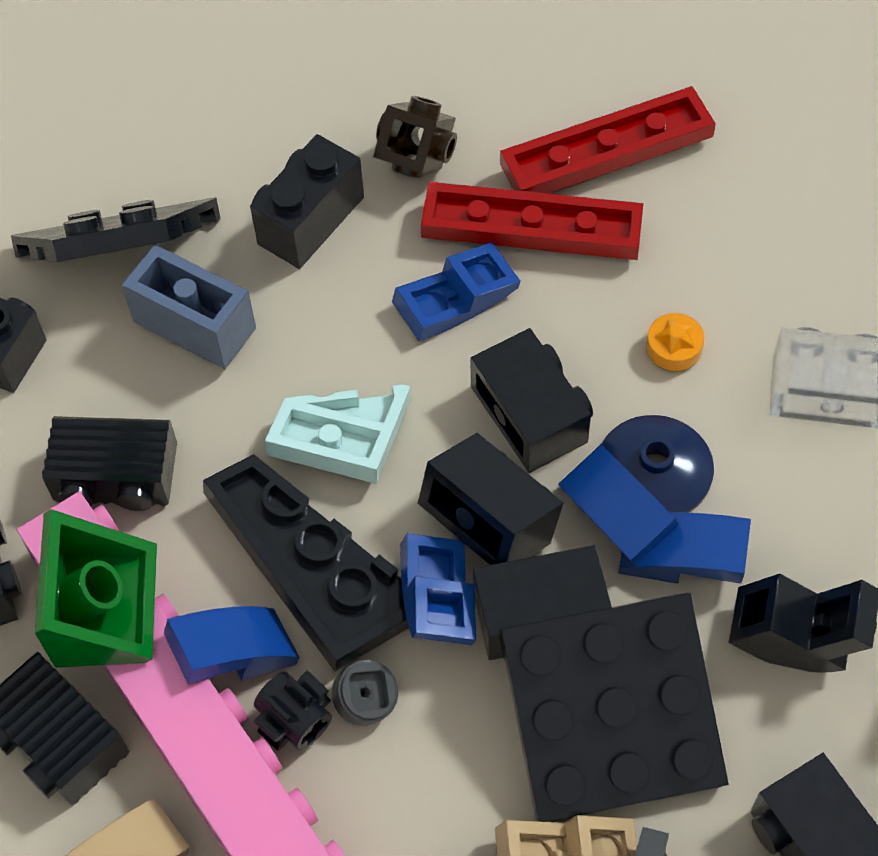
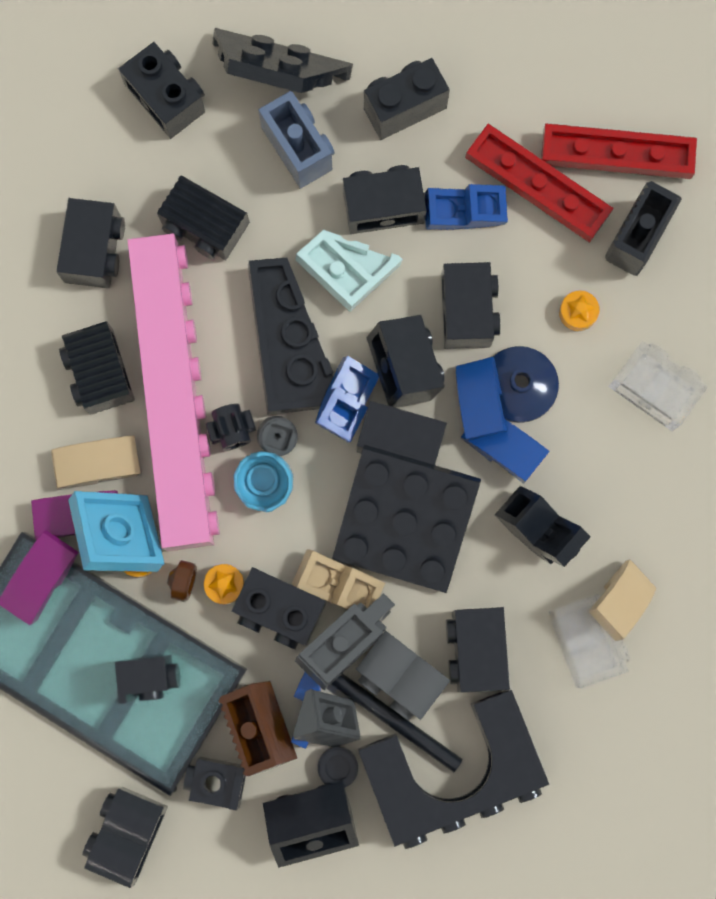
camera: 25 degrees right, 20 degrees up
(94, 594) = (150, 307): green slope -> none
(228, 641) = (215, 369): blue slope -> none
(346, 327) = (384, 199): none -> black brick
(380, 760) = (263, 481): none -> medium azure hair
(400, 142) = (496, 87): dark brown brick -> none
(695, 206) = (643, 228): none -> black brick

